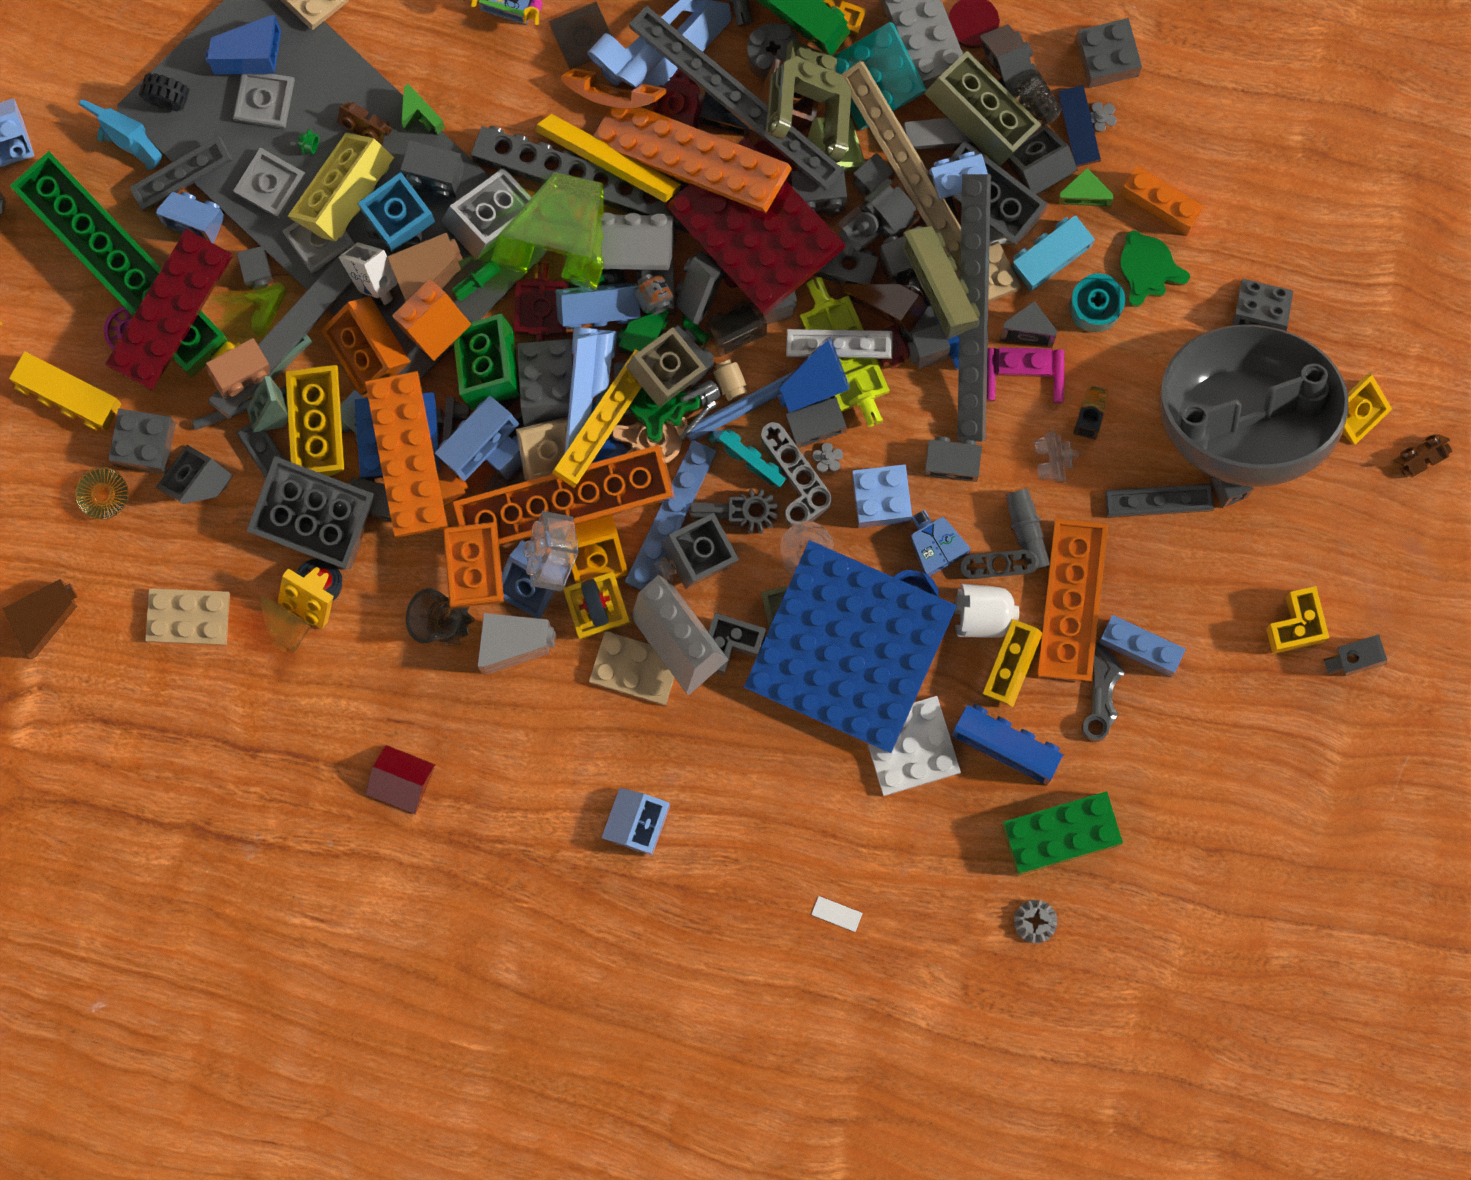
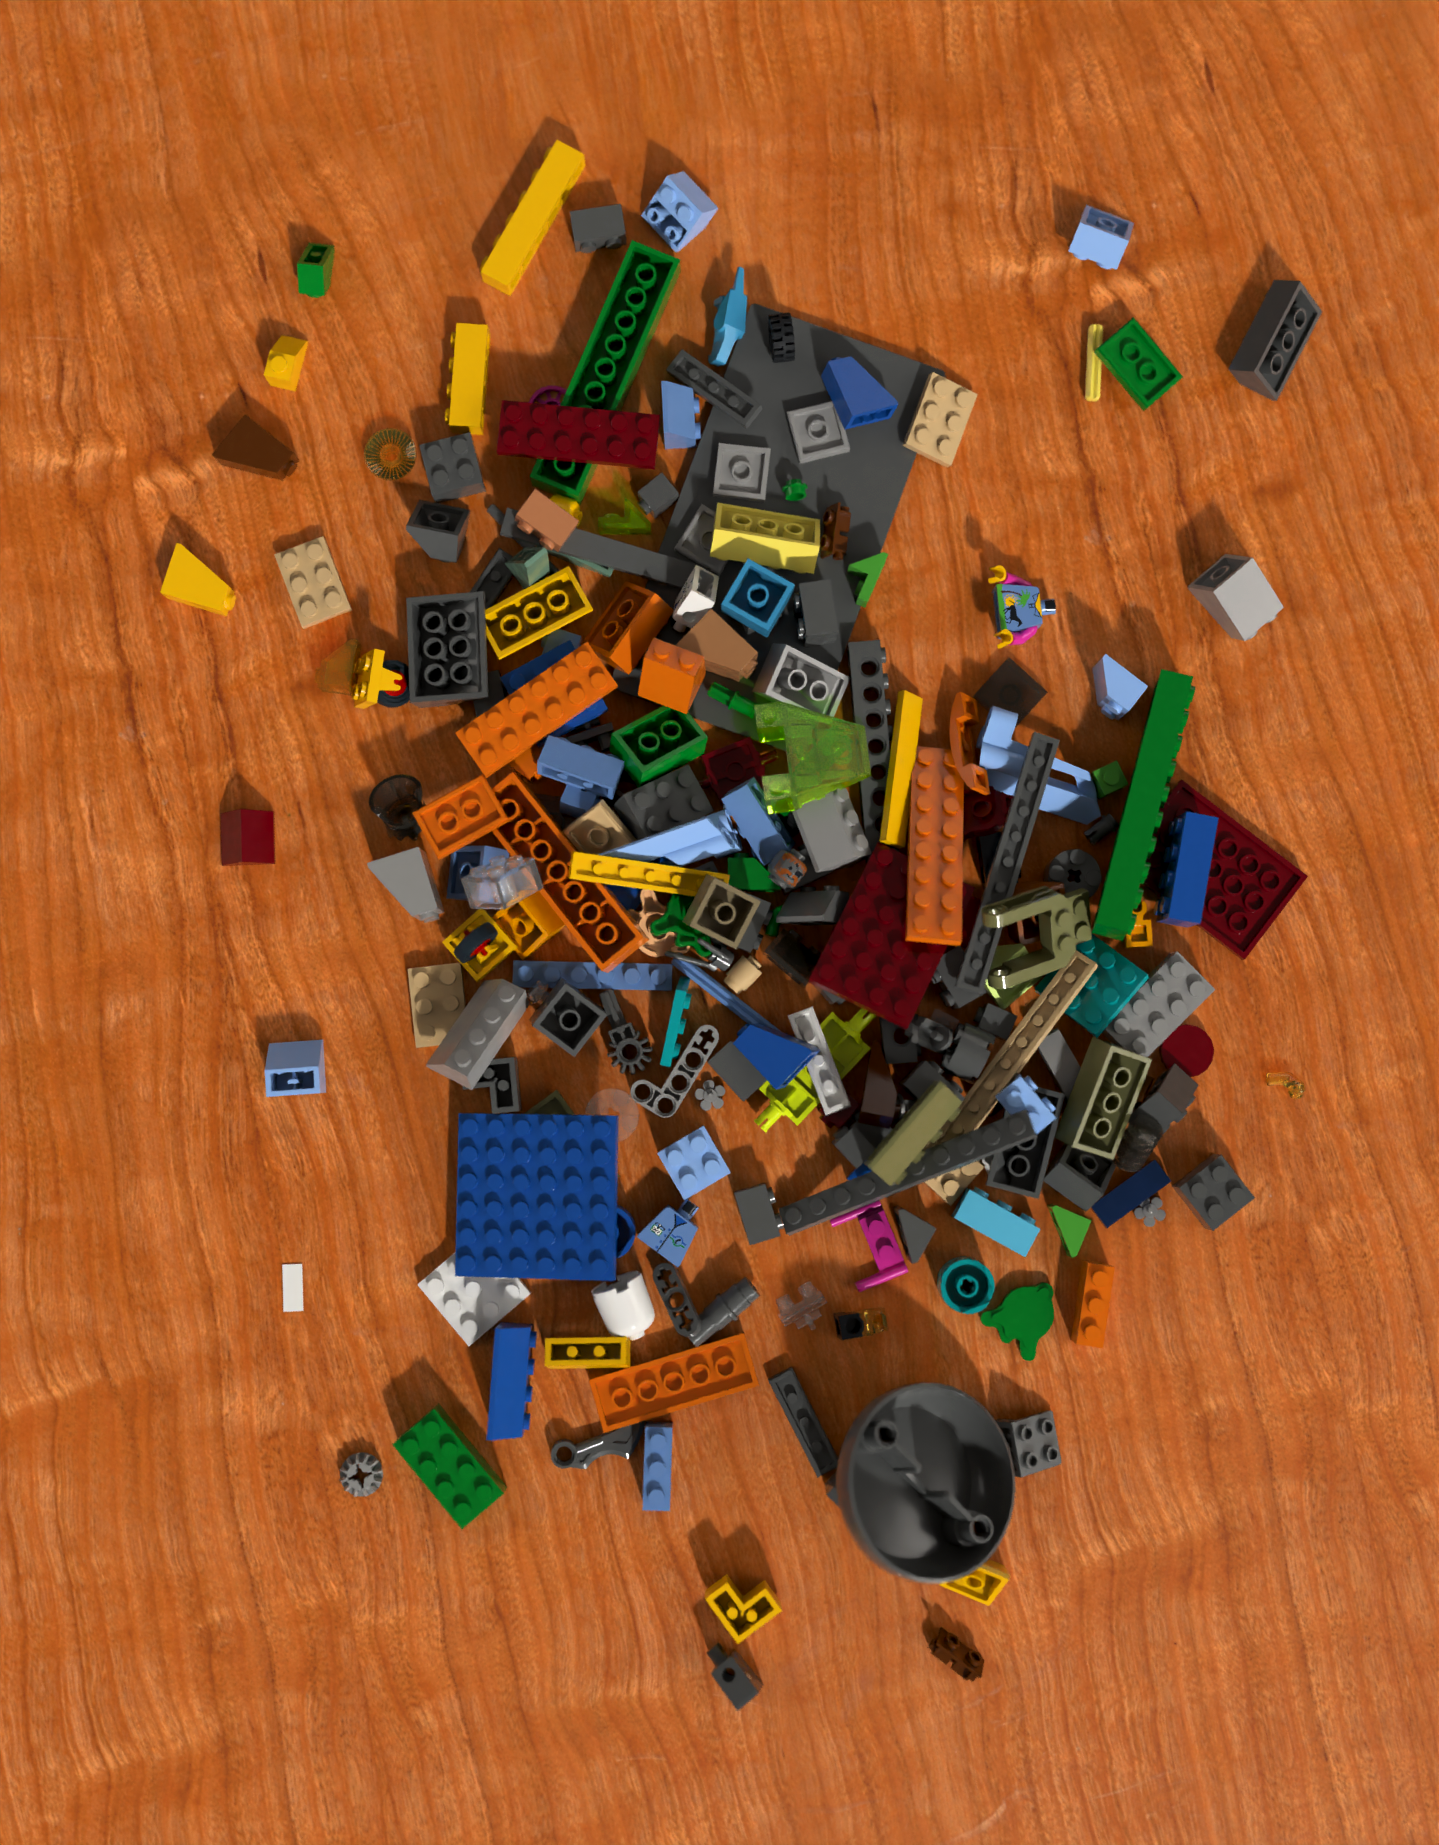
camera: 60 degrees right, 5 degrees up
(140, 723) = (195, 584): none -> yellow slope

